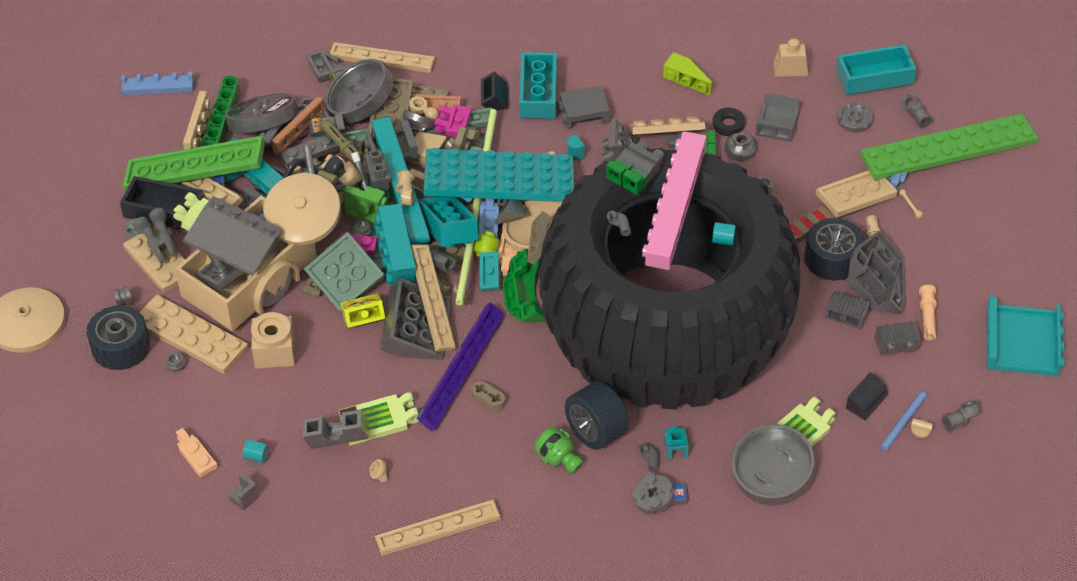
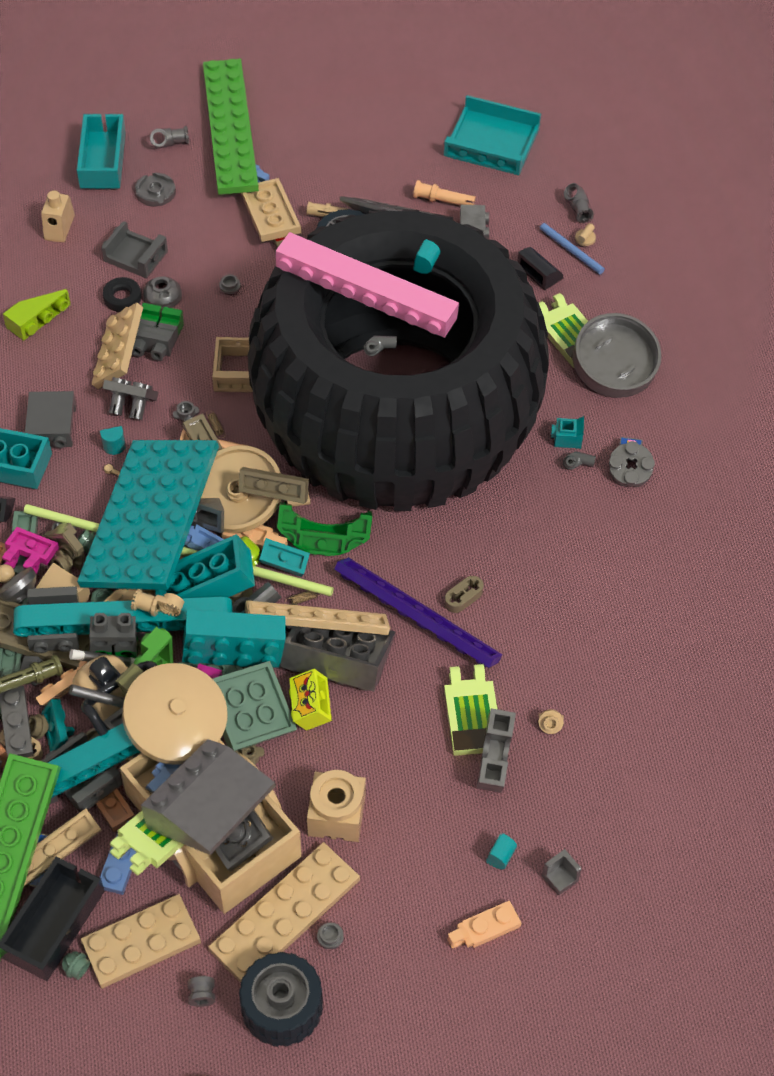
camera: 80 degrees left, 5 degrees up
(163, 240) = (127, 922): dark grey piece -> none
(437, 527) = (639, 676): tan tile -> none
(557, 449) = (560, 537): bright green piece -> none
(596, 415) = (534, 485): black wheel -> none
(635, 166) = (306, 309): hips -> none
(918, 214) = (308, 174): tan hinge -> none

